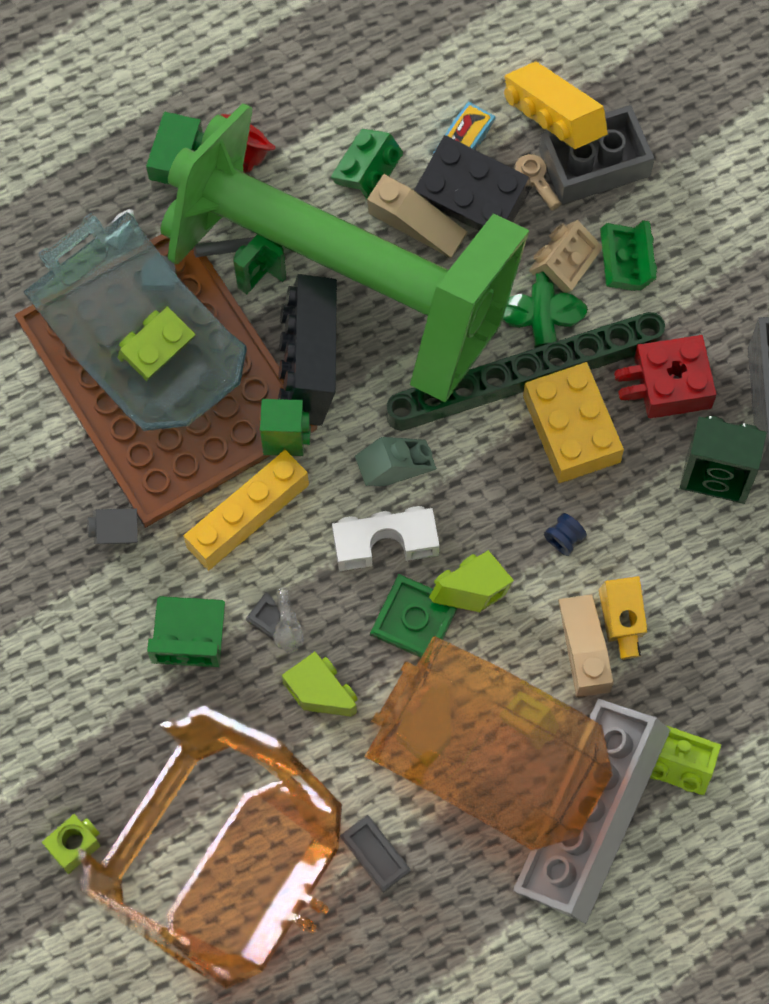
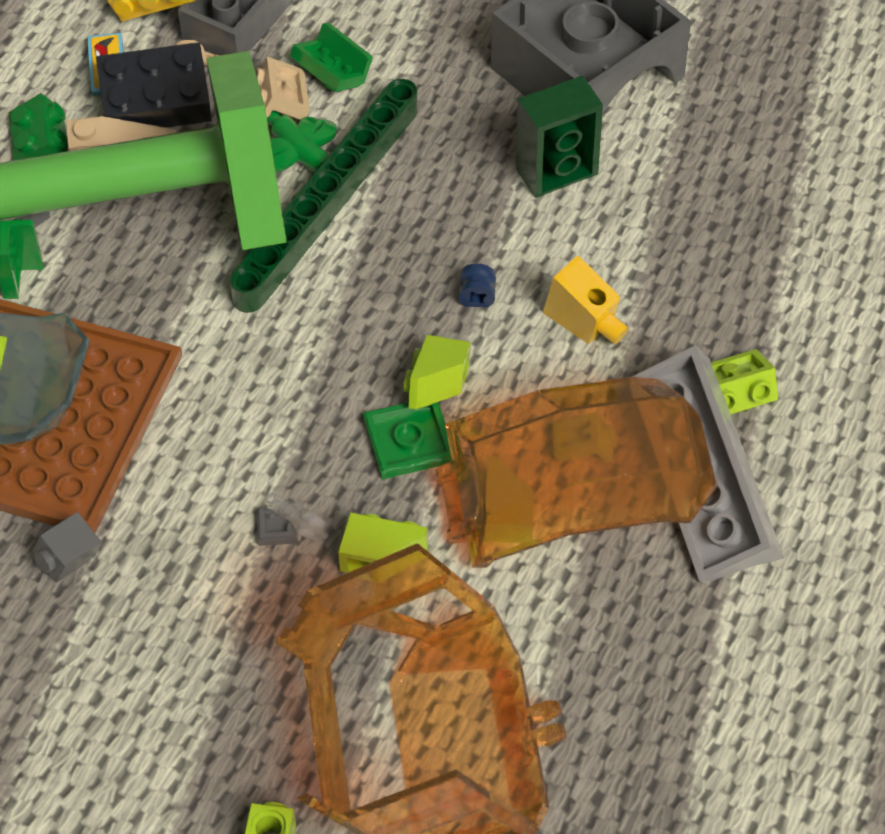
camera: 40 degrees left, 15 degrees down
(187, 632) = (216, 588): green bracket -> none
(246, 510) = (179, 453): yellow brick -> none
(284, 427) = (159, 354): green brick -> none
(309, 345) = (125, 285): black brick -> none
(375, 853) = (554, 641): dark grey tile -> none
(394, 460) = (276, 329): sand green slope -> none
(412, 529) = (344, 370): white arch -> none
(573, 422) = (404, 201): yellow brick -> none
(585, 646) = (576, 352): tan slope -> none
(662, 392) = (453, 118): red hinge -> none

